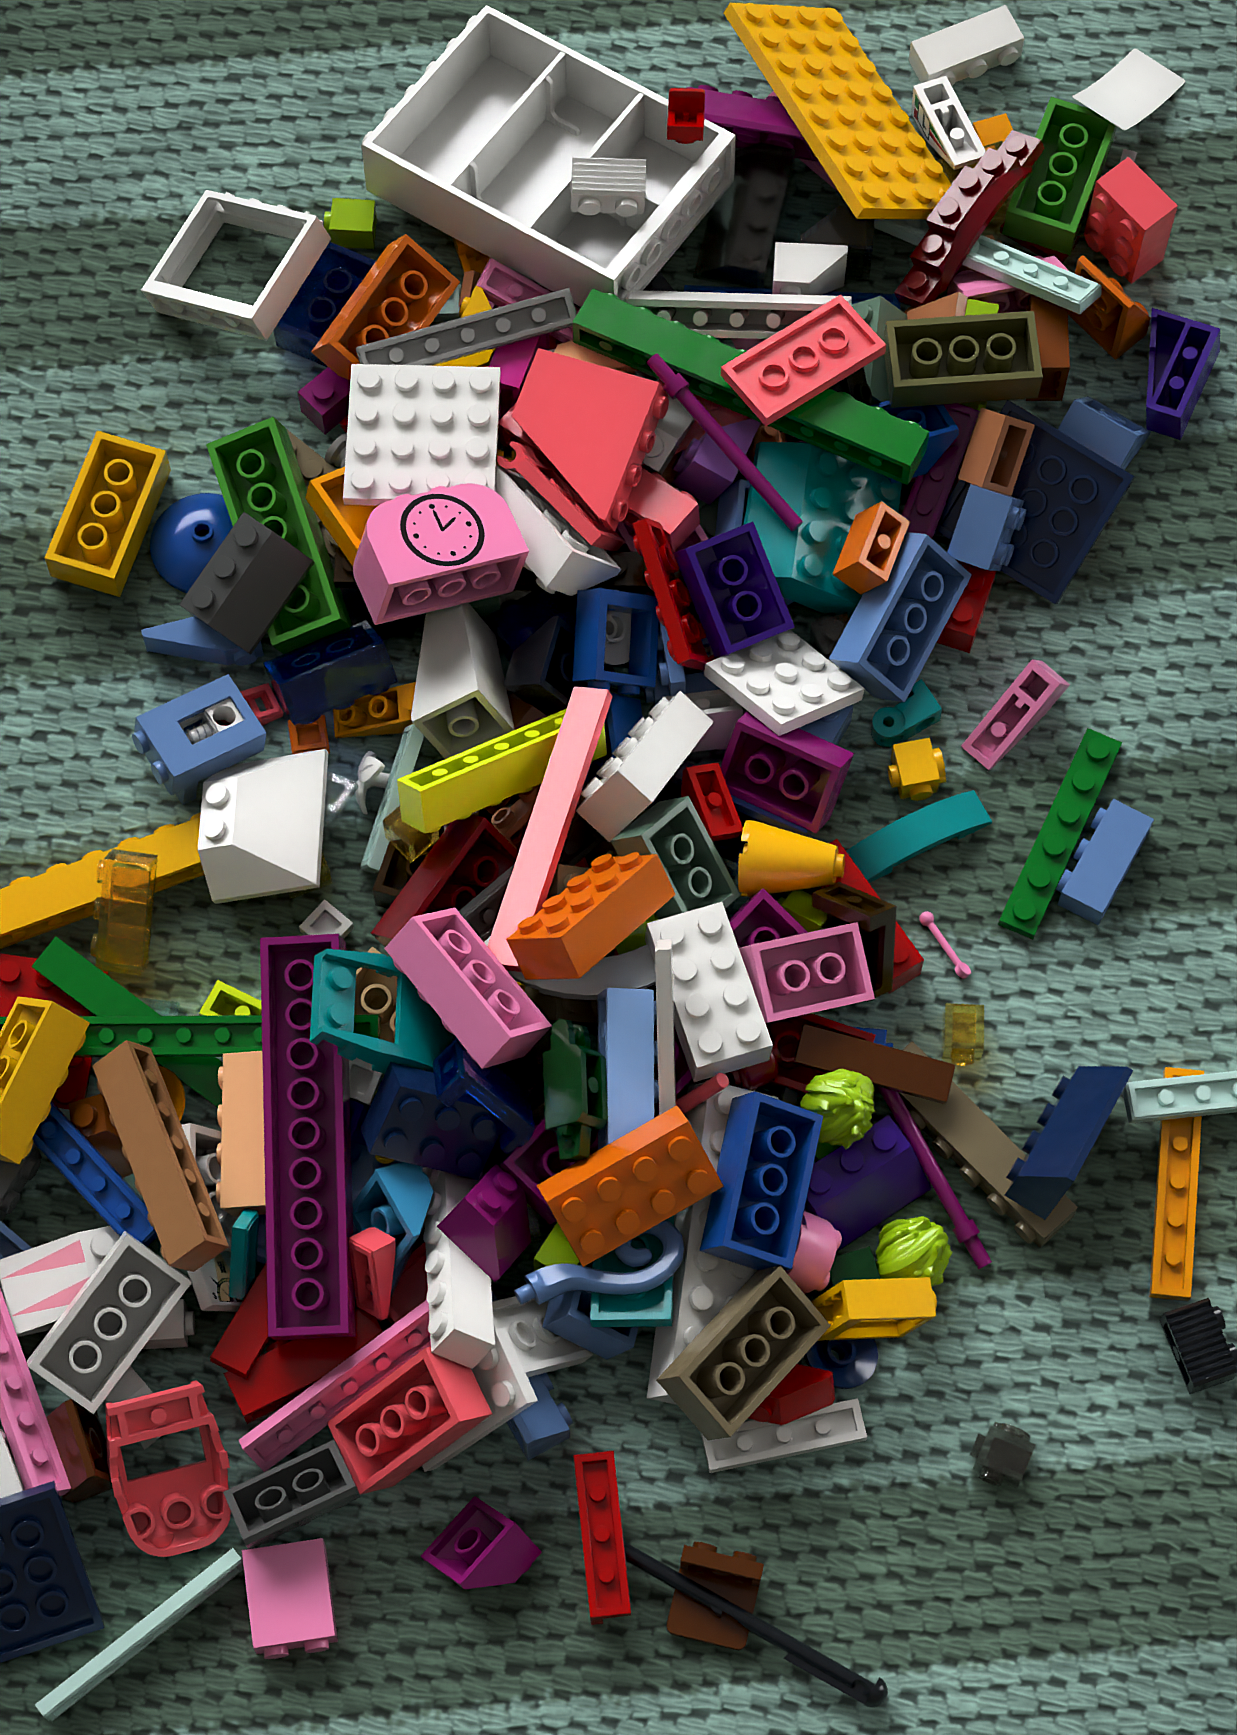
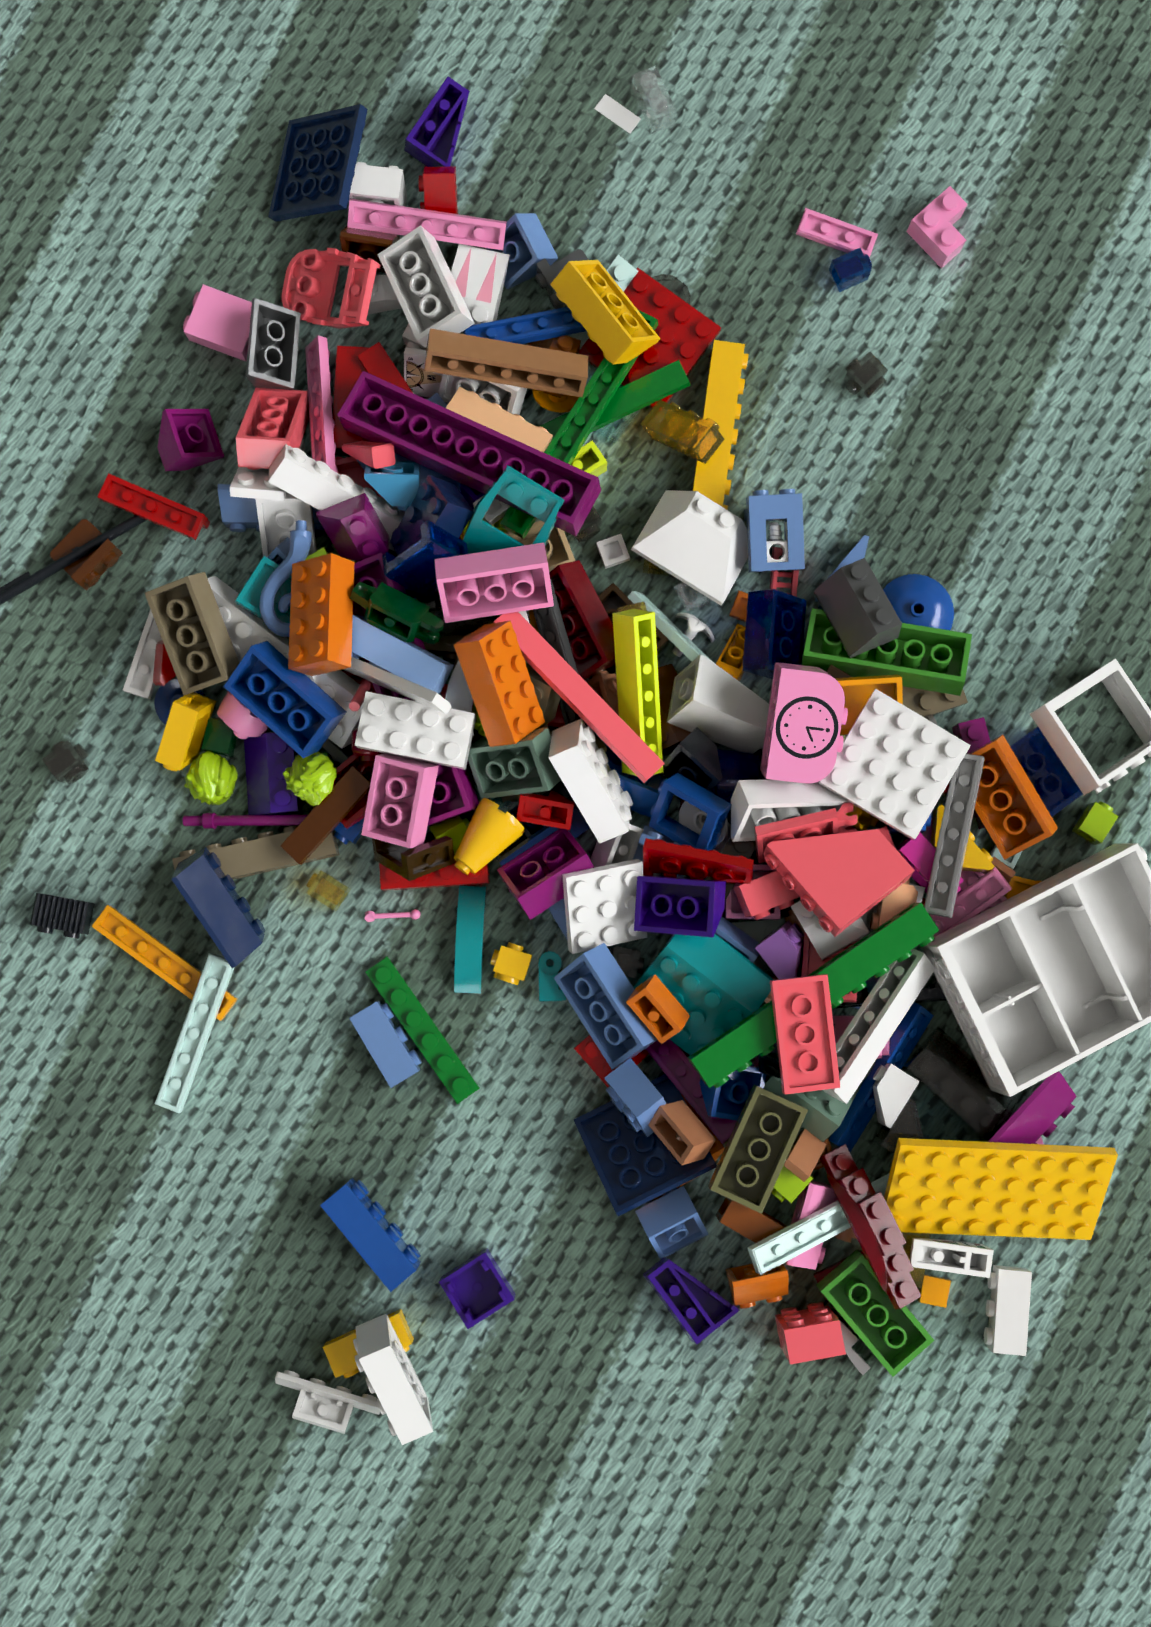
camera: 120 degrees right, 15 degrees up
(108, 513) = (963, 558): yellow brick -> none
(140, 1635) = (249, 227): light aqua tile -> none
(243, 1253) = (427, 388): teal tile -> none
(608, 186) = (1011, 982): white brick -> none
(677, 387) = (834, 942): magenta bar -> none
(686, 115) = (1038, 1067): red bracket -> none
(1015, 713) = (513, 1049): bright pink slope -> none
(1130, 90) = (914, 1401): white sticker -> none

